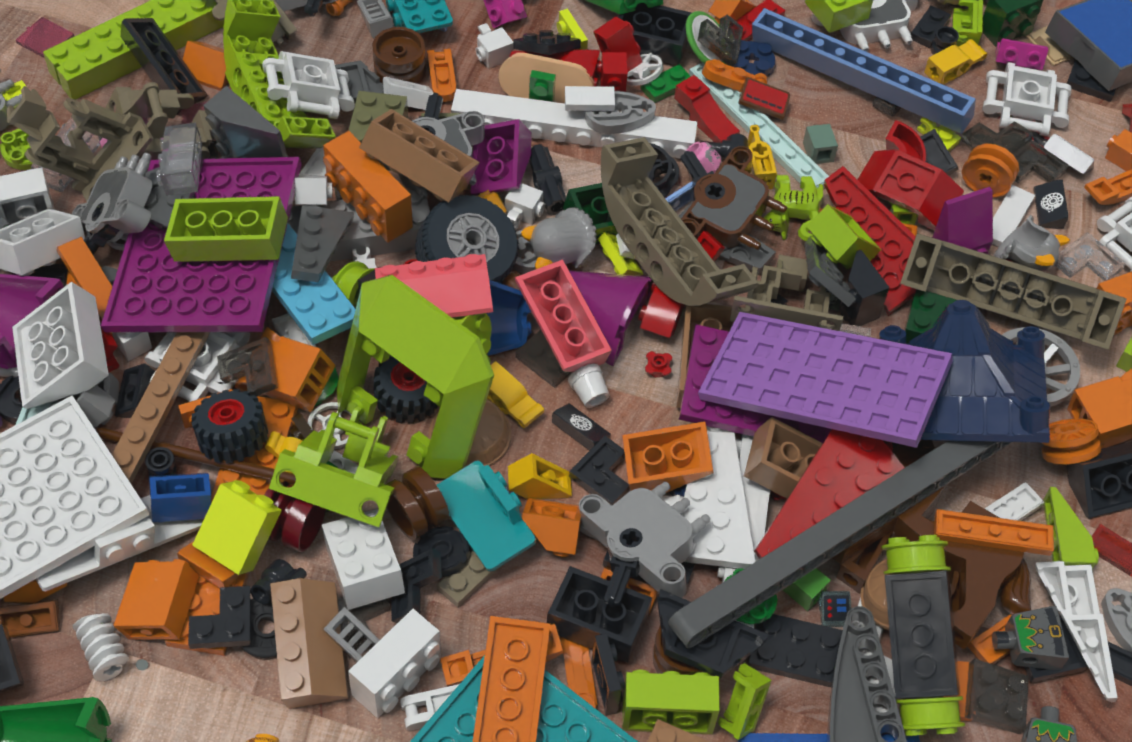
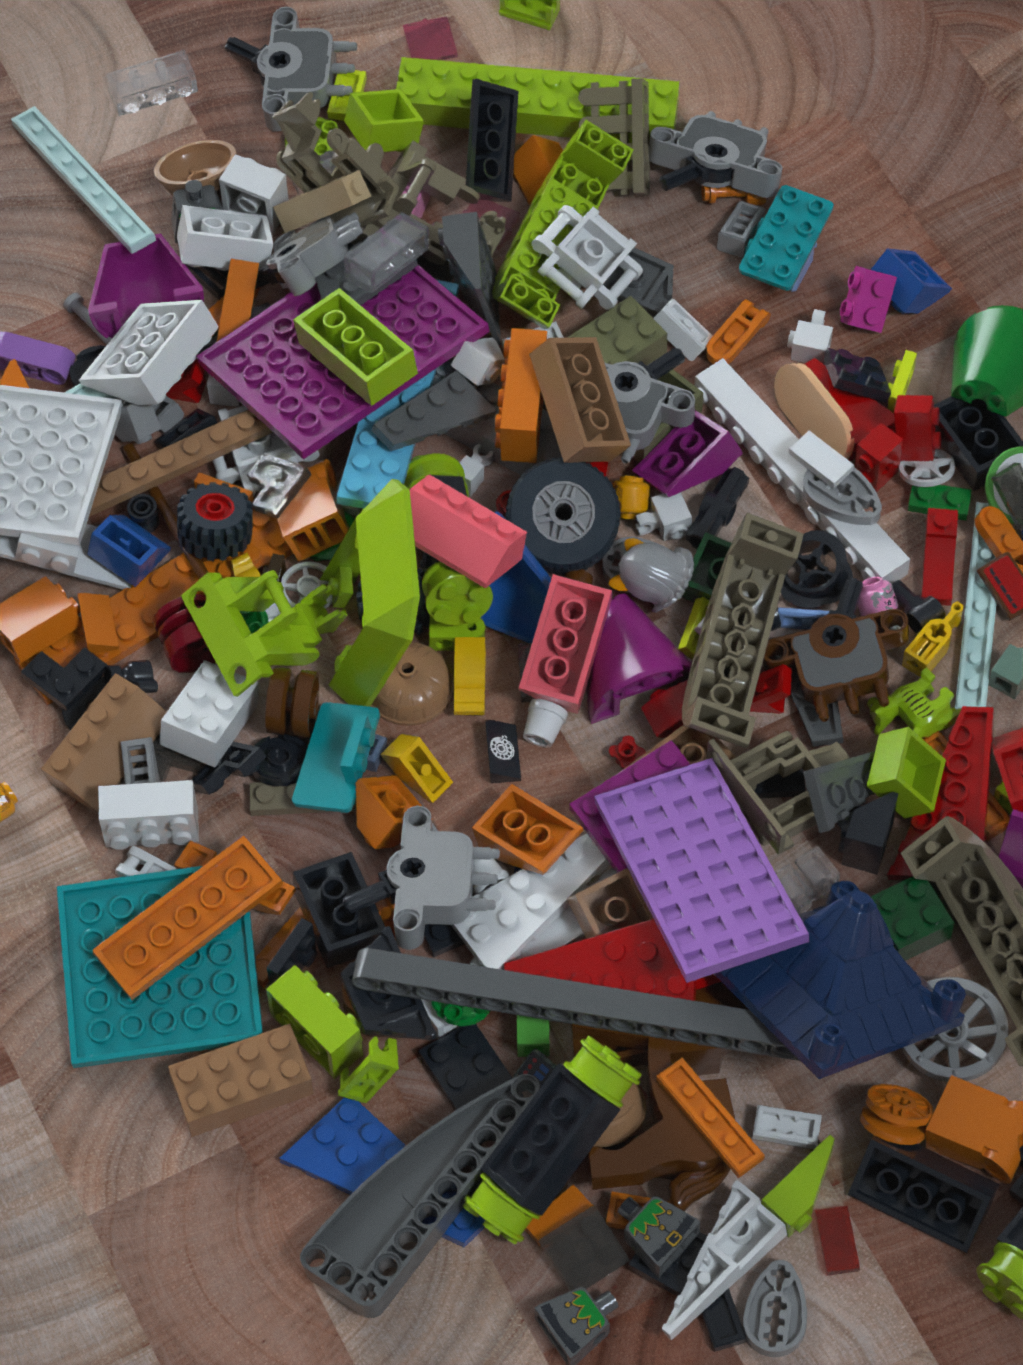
camera: 50 degrees right, 5 degrees up
(78, 85) = (383, 119): none -> lime piece
(89, 165) = (322, 201): none -> tan brick
(237, 526) = (134, 608): neon yellow brick -> none
(399, 54) = (708, 287): reddish brown wheel -> none
(542, 86) = (796, 415): green plate -> none
(596, 473) = (471, 796): black plate -> none

